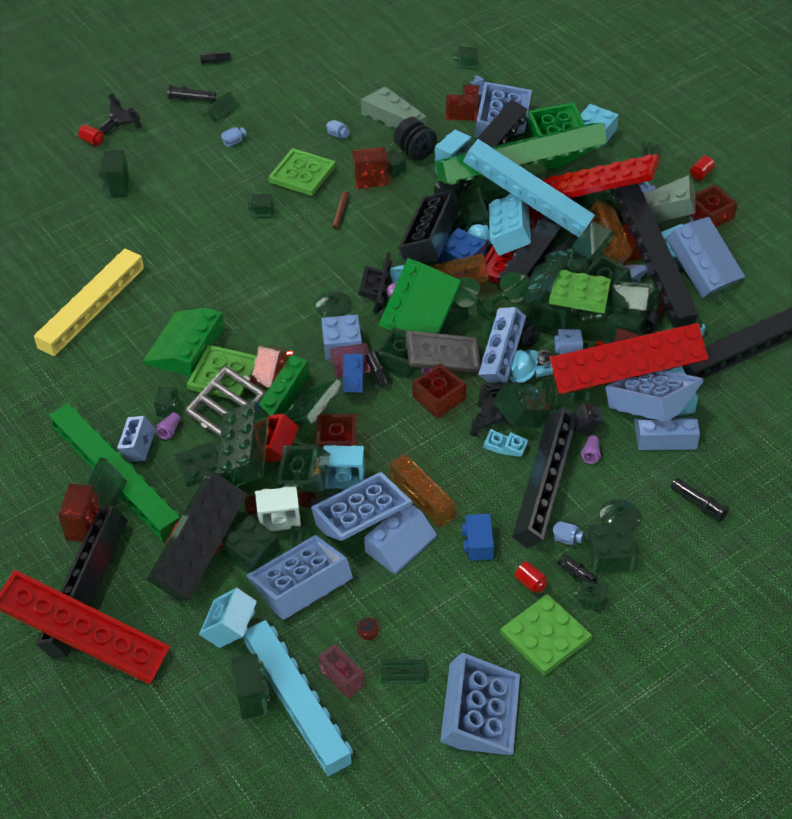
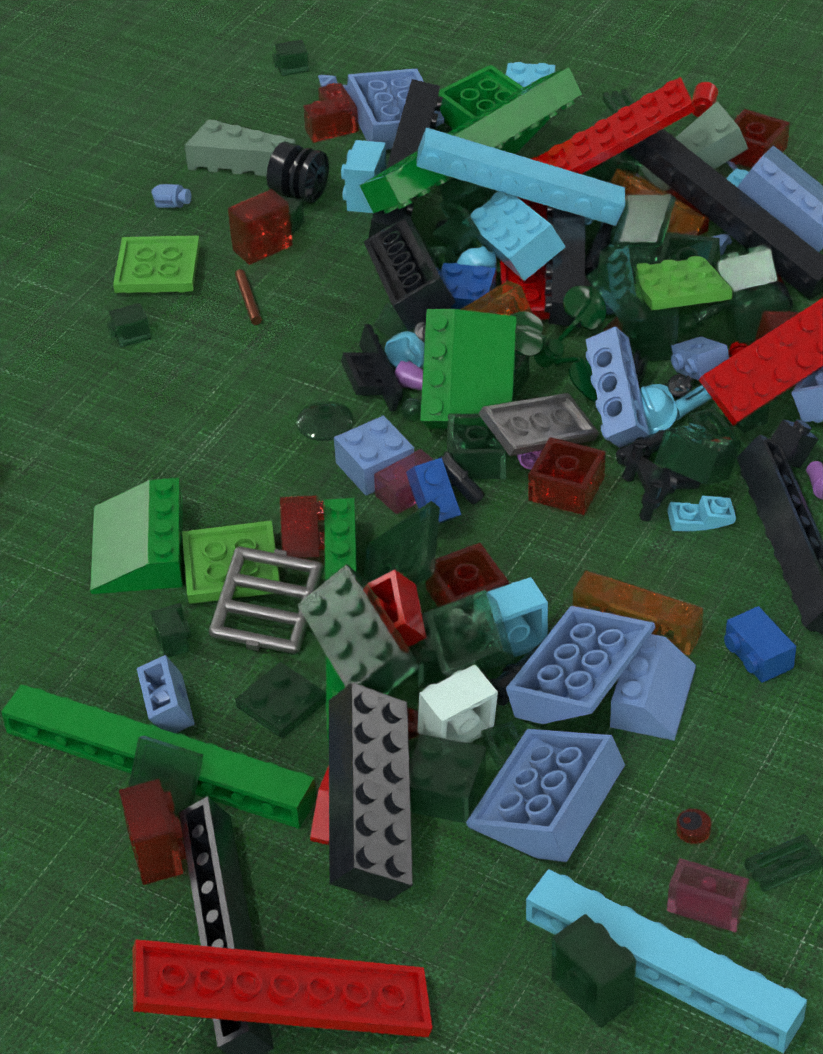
camera: 25 degrees left, 5 degrees down
(167, 427) = (198, 665): medium lavender cone -> none
(228, 618) = (492, 888): medium azure brick -> none
(233, 136) = (19, 249): medium blue arm -> none

